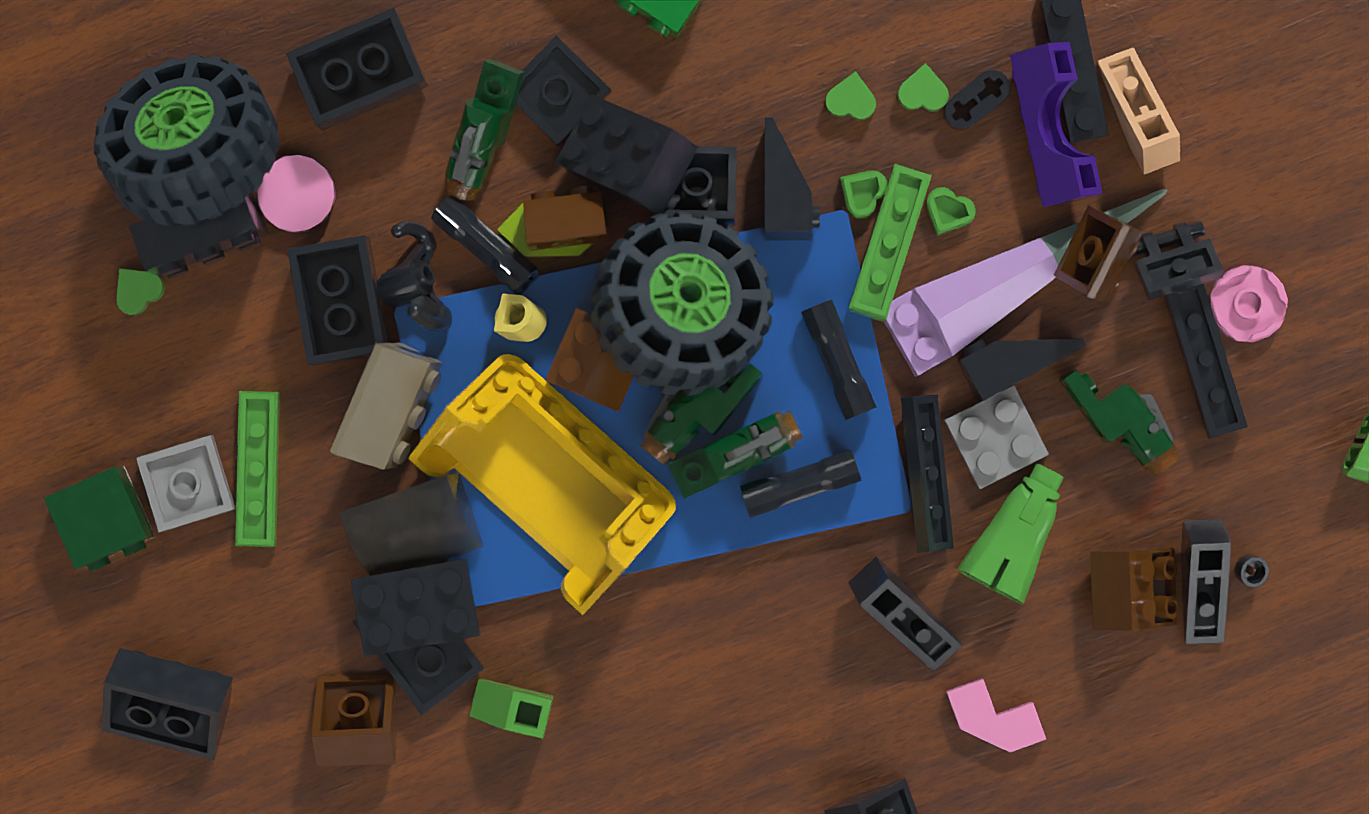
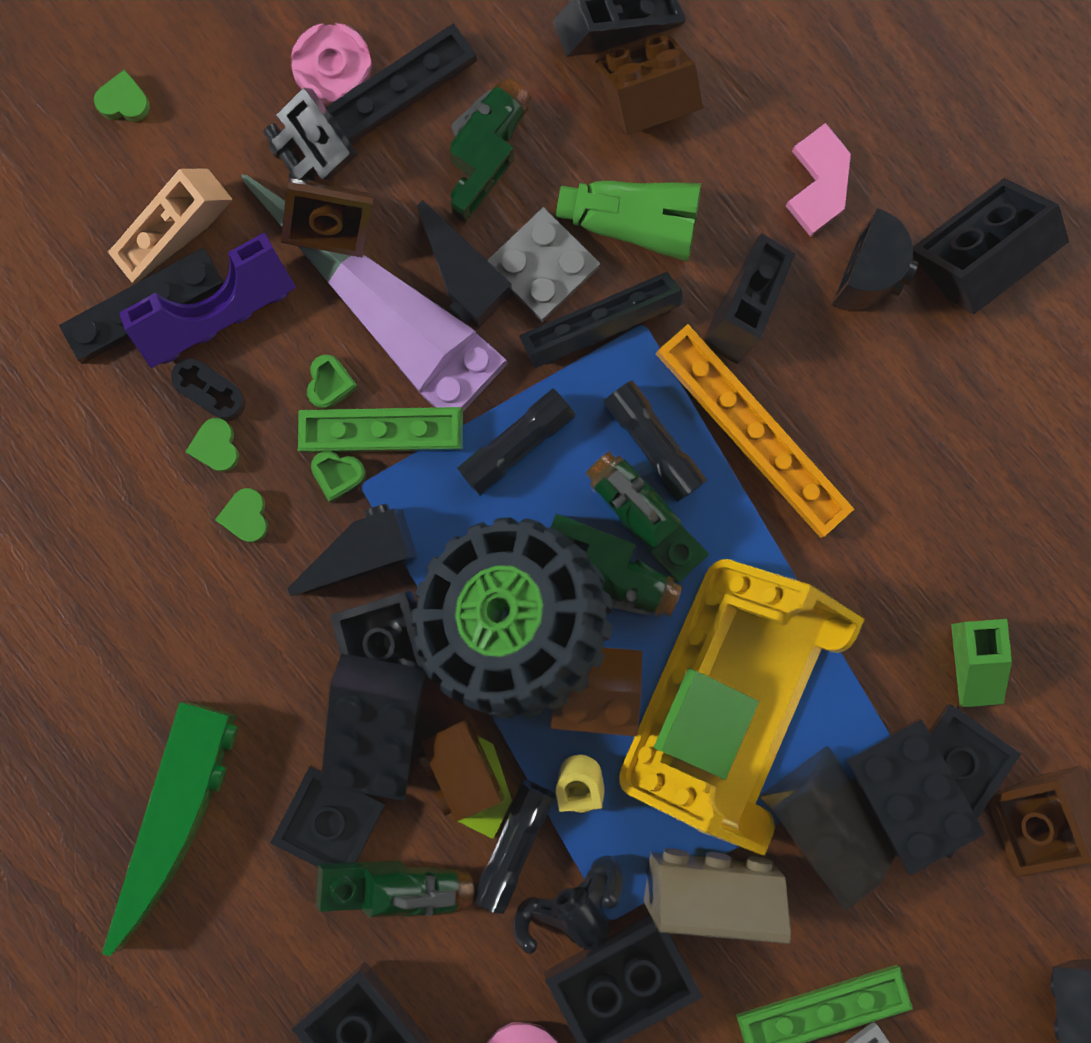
camera: 110 degrees left, 5 degrees down
(536, 445) = (706, 724): none -> bright green tile
(781, 577) = (754, 431): none -> light orange plate
(895, 735) = (877, 265): none -> black brick
(1273, 102) = (122, 99): none -> bright green tile

